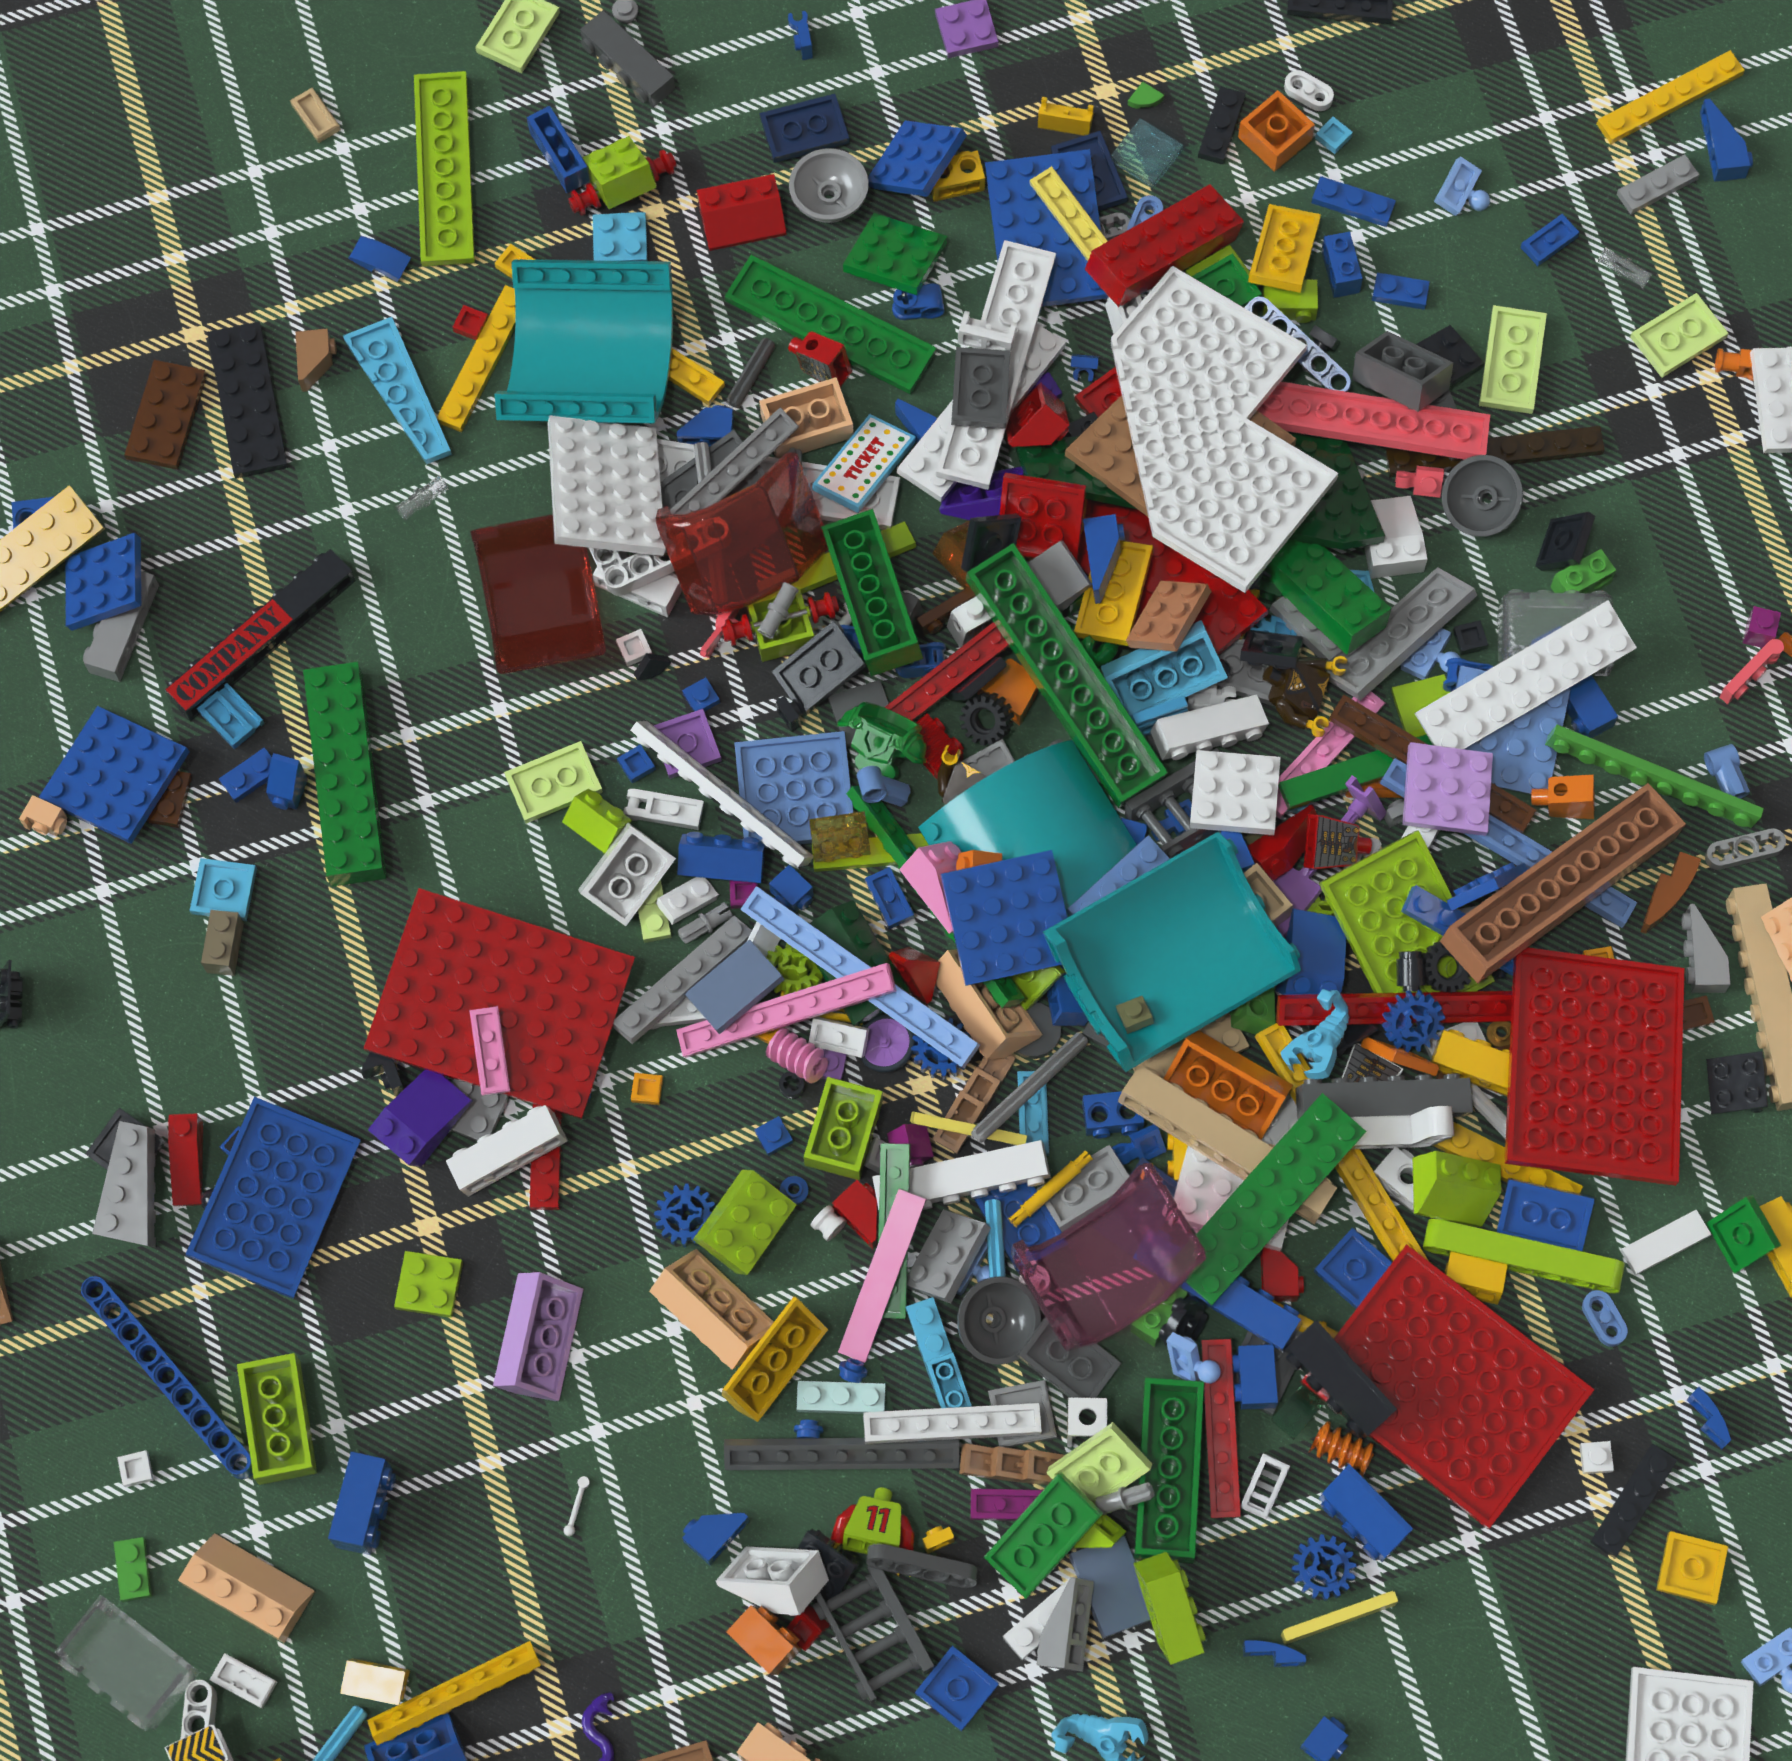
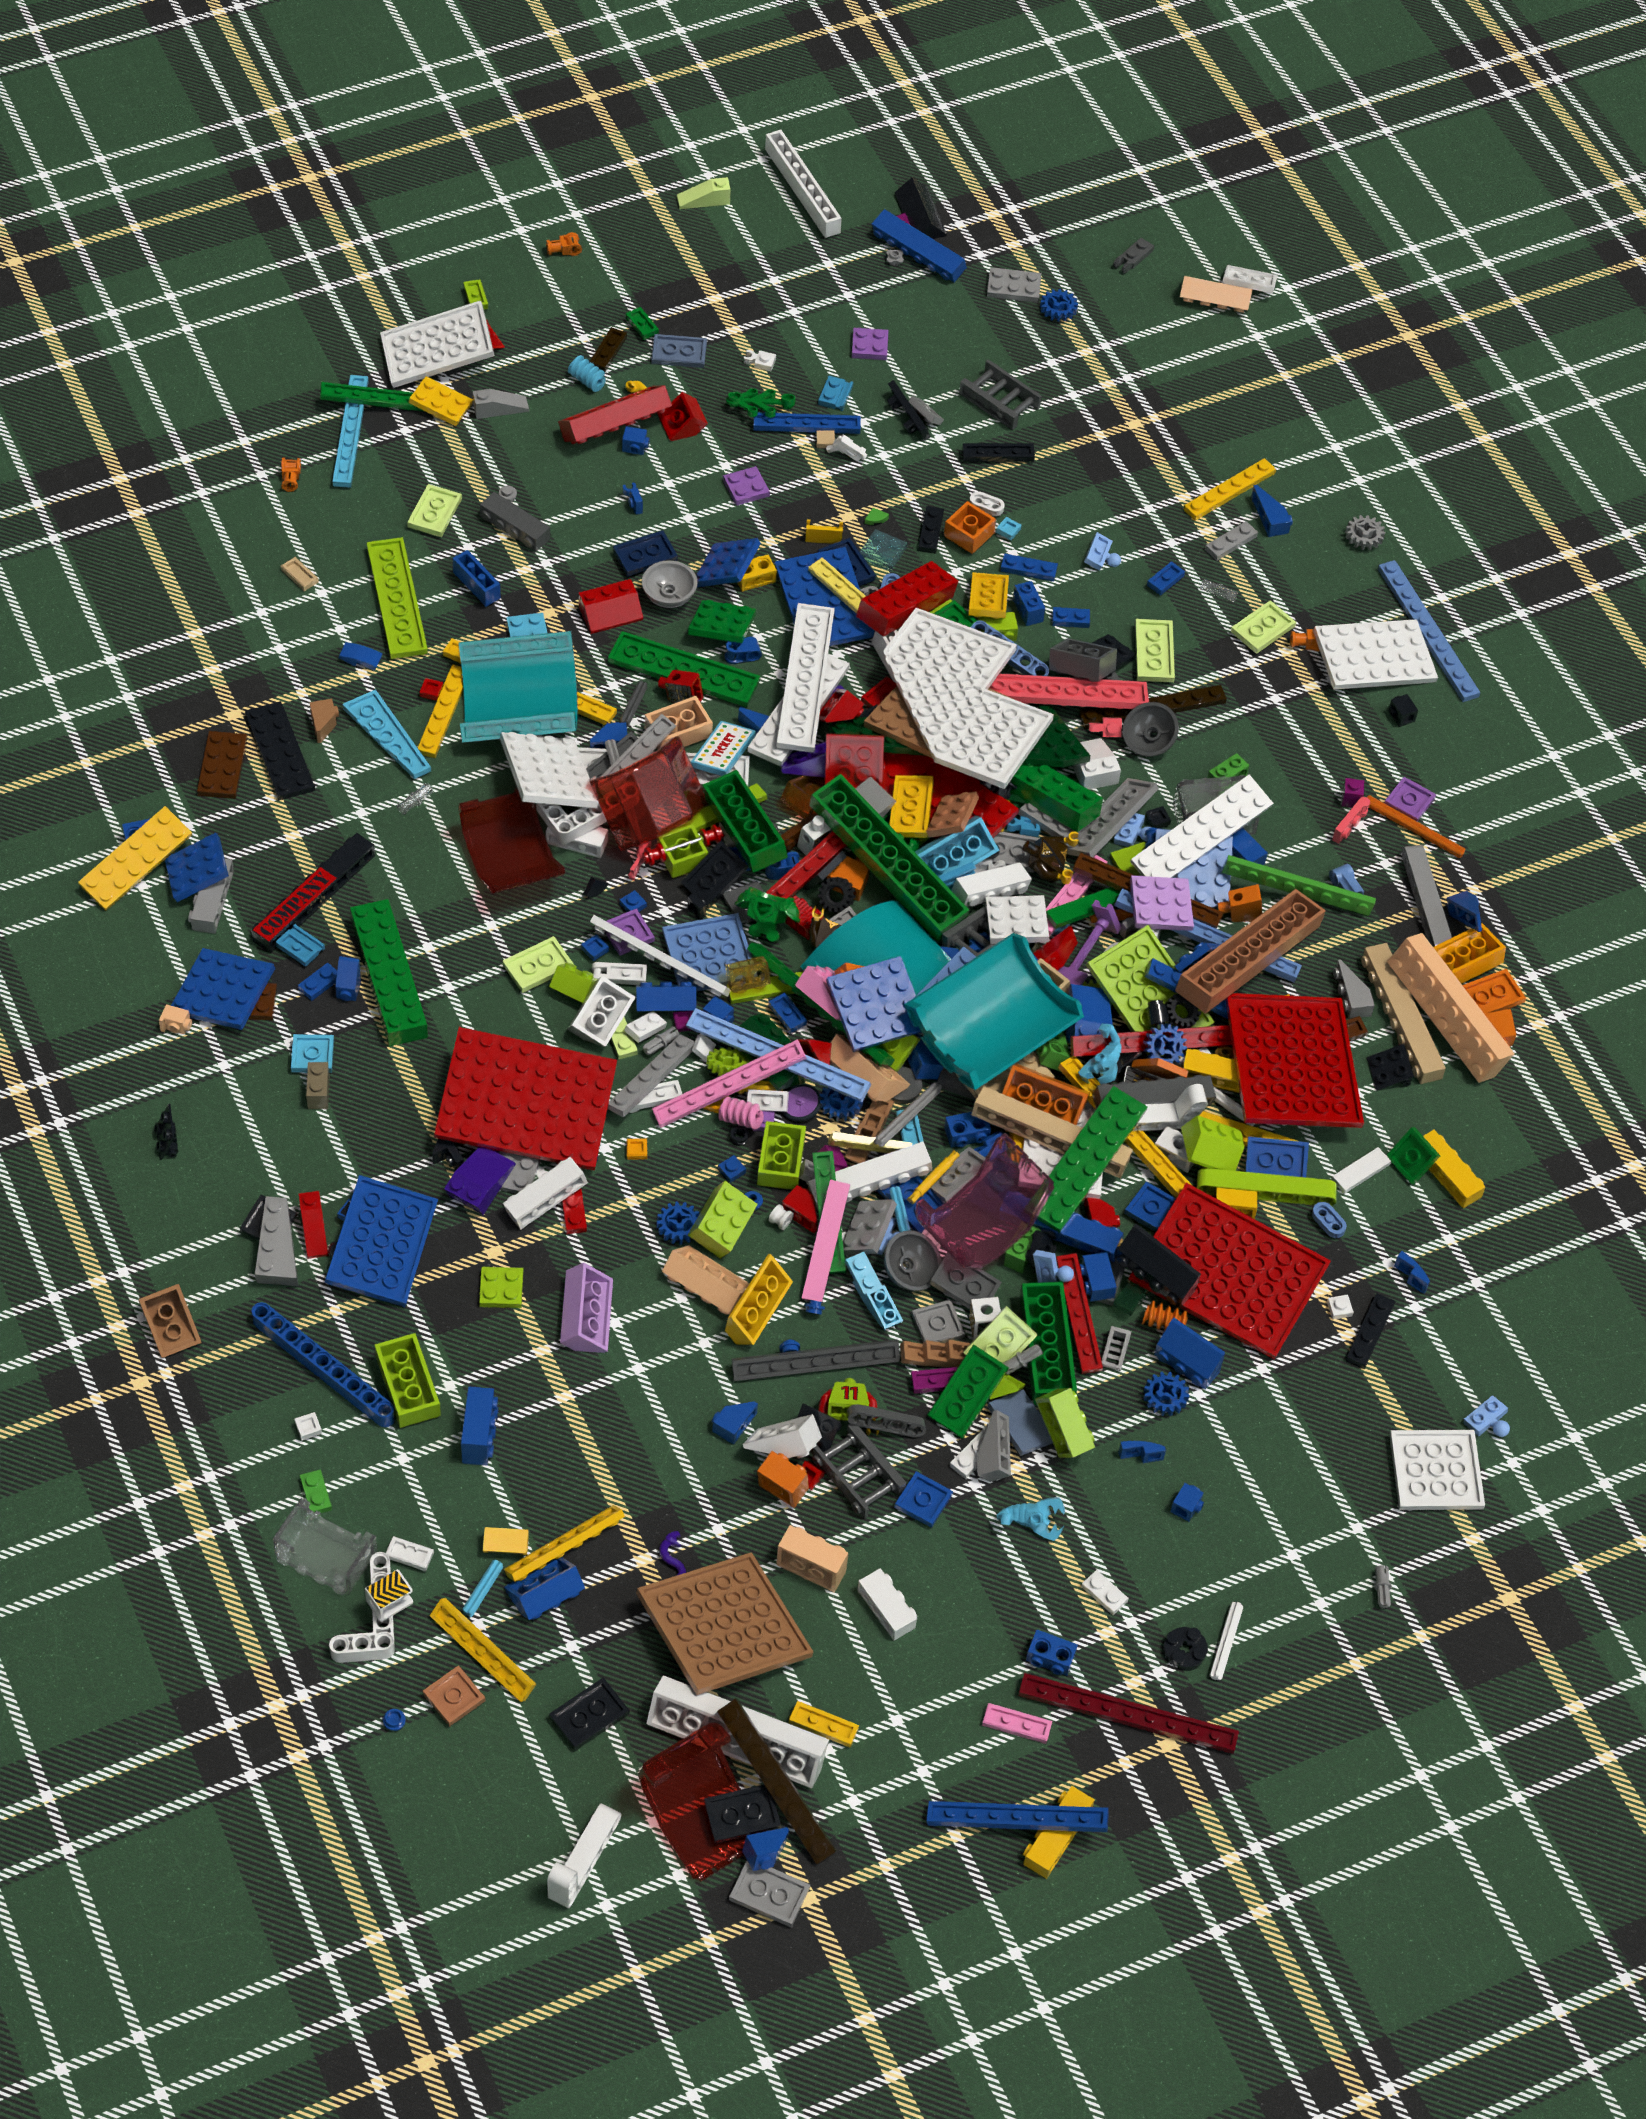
camera: 15 degrees left, 15 degrees down
(246, 1587) = (401, 1495): light nougat slope -> none
(489, 1051) = (525, 1126): bright pink tile -> none
(583, 1483) = (634, 1402): white hinge -> none
(619, 175) = (522, 589): lime brick -> none
(633, 647) = (580, 876): white plate -> none
(734, 986) = (690, 1073): sand blue tile -> none
(778, 610) = (681, 837): light grey pin -> none
(840, 1397) = (808, 1327): light aqua plate -> none
(877, 787) = (770, 942): medium blue piece -> none
(937, 1539) = (895, 1404): yellow plate -> none
(952, 1423) = (891, 1329): white plate -> none
(980, 387) = (799, 689): dark grey plate -> none
(985, 335) = (797, 659): white hinge -> none
(988, 537) = (819, 775): black tile -> none
(1084, 362) = (864, 676): blue tile -> none
(1103, 549) = (899, 777): blue slope -> none
(1134, 1014) = (974, 1055): olive plate -> none
(1271, 649) = (1032, 831): black plate -> none
(1323, 339) = (1027, 646): black plate -> none
(1333, 843) = (1088, 942): torso -> none
(1339, 1617) = (1184, 1422): light yellow tile -> none
(1565, 541) = (1211, 752): black tile -> none
(1670, 890) = (1322, 956): dark orange slope -> none
(1692, 1568) = (1418, 1366): yellow plate -> none
(1723, 846) = (1361, 933): light grey beam -> none

